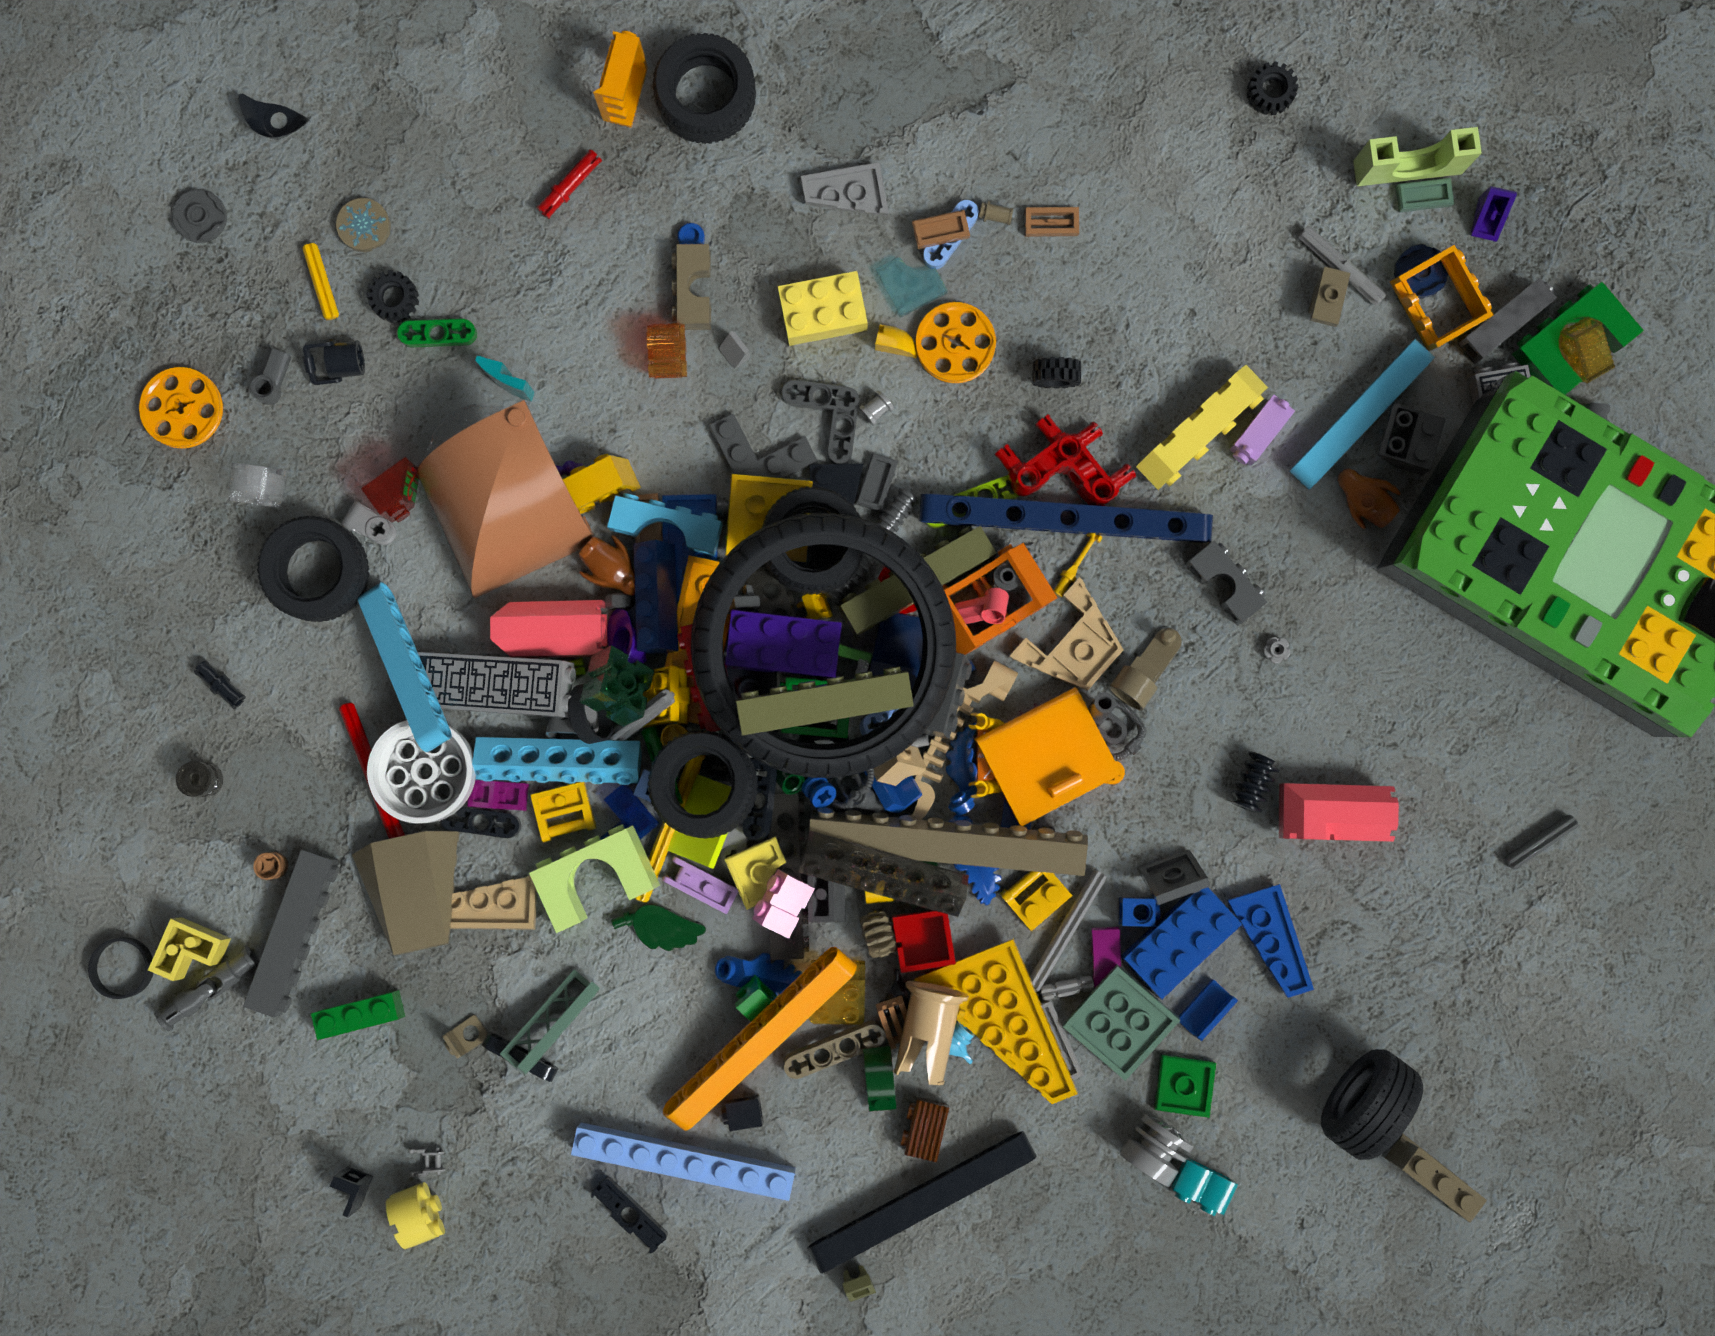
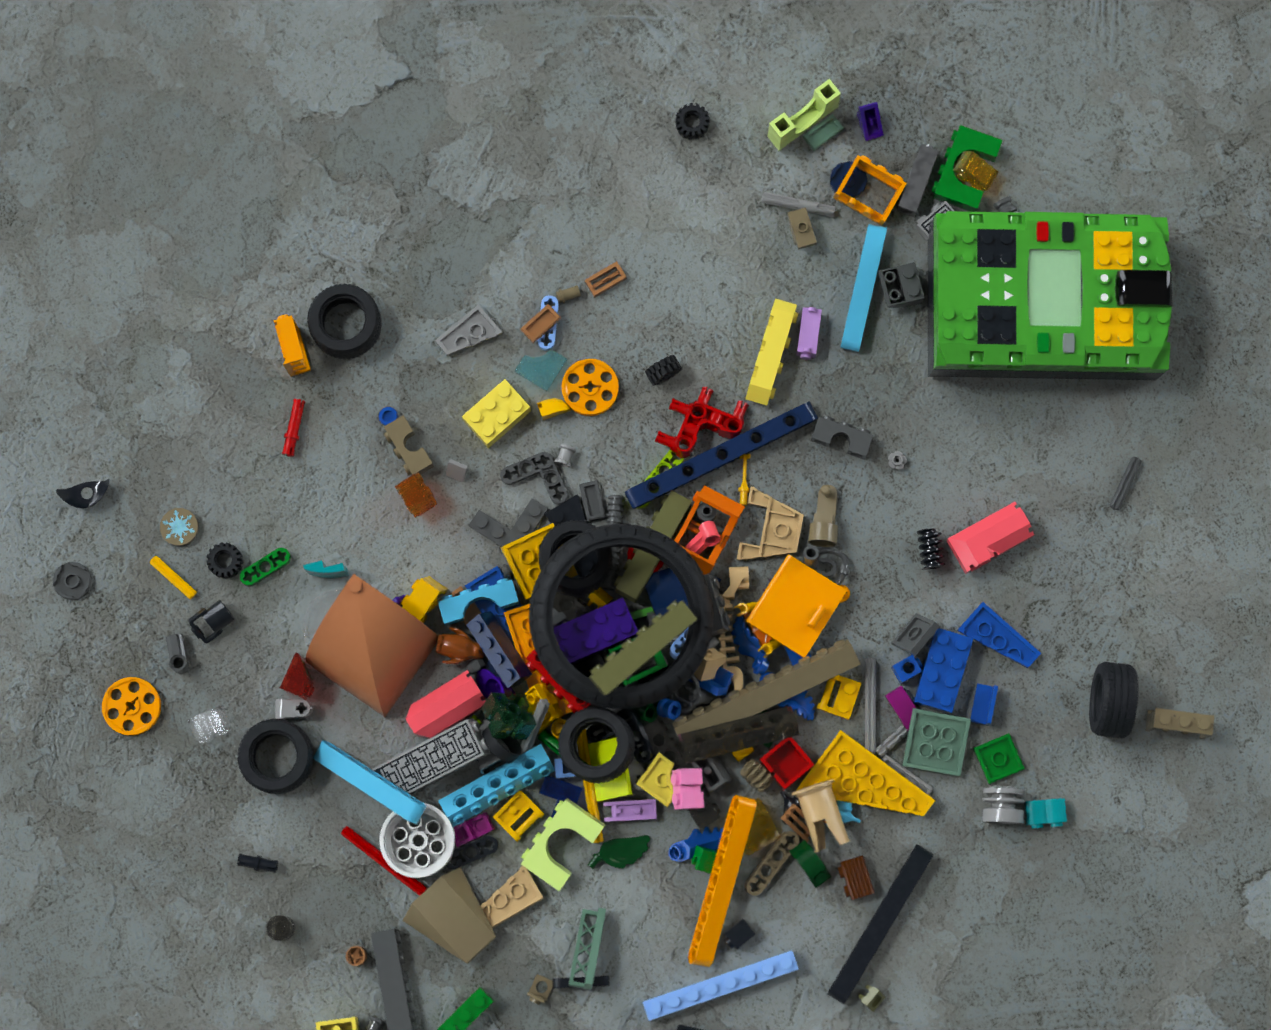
camera: 25 degrees left, 5 degrees down
(1368, 498) = (897, 336): dark orange animal -> none

